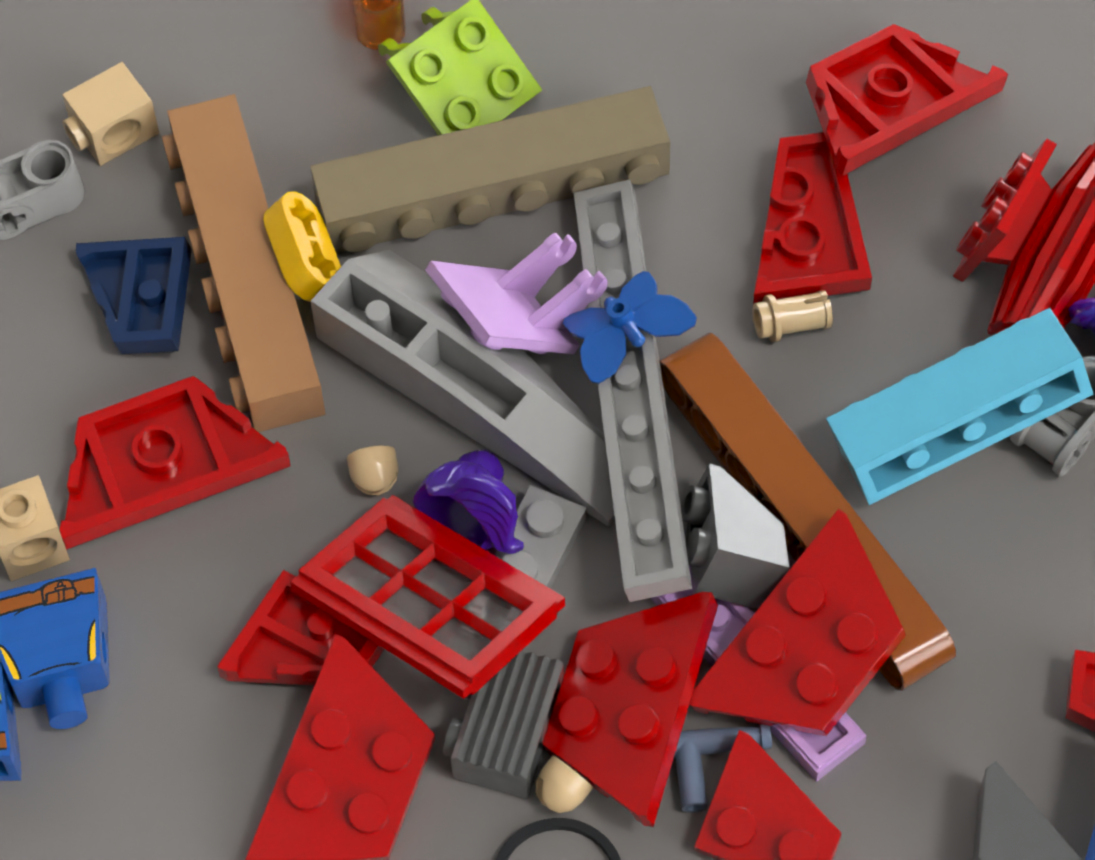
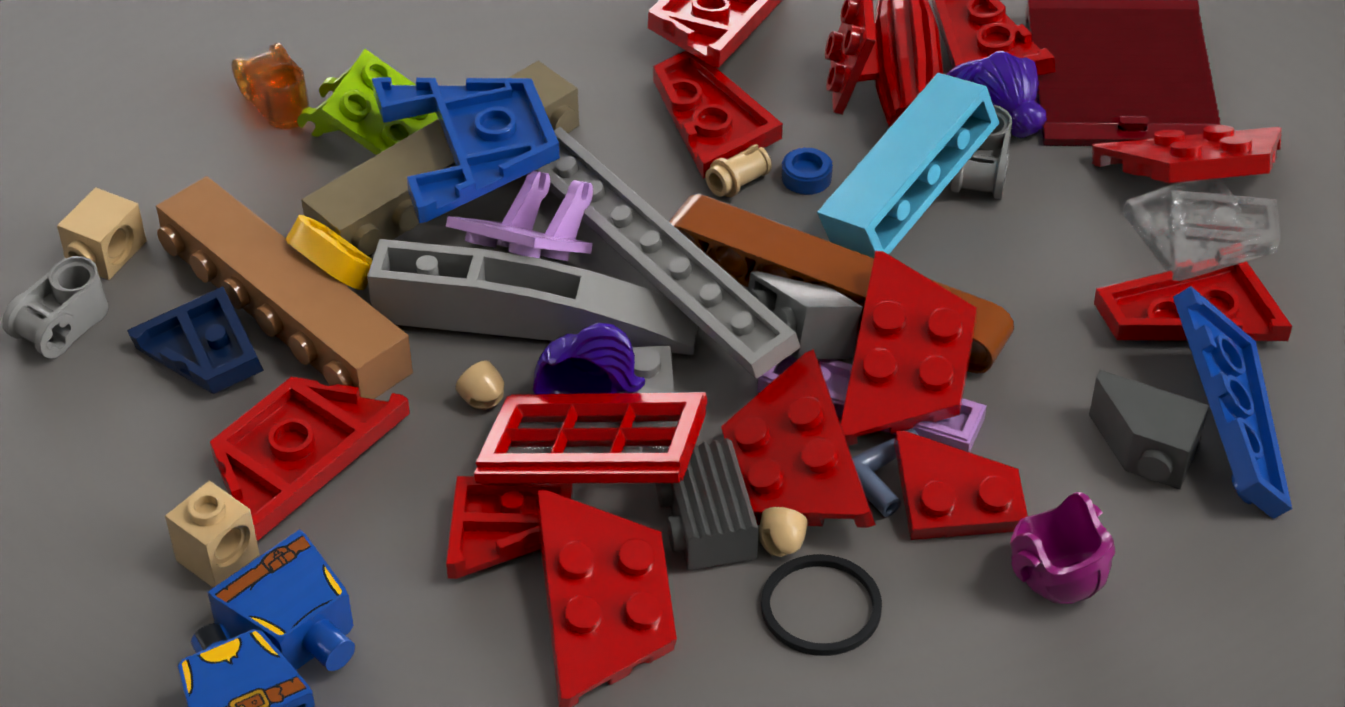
camera: 30 degrees left, 15 degrees down
(538, 168) = (491, 127): none -> blue wing
(635, 309) = (627, 196): blue piece -> none
(871, 344) = (806, 171): none -> blue tile

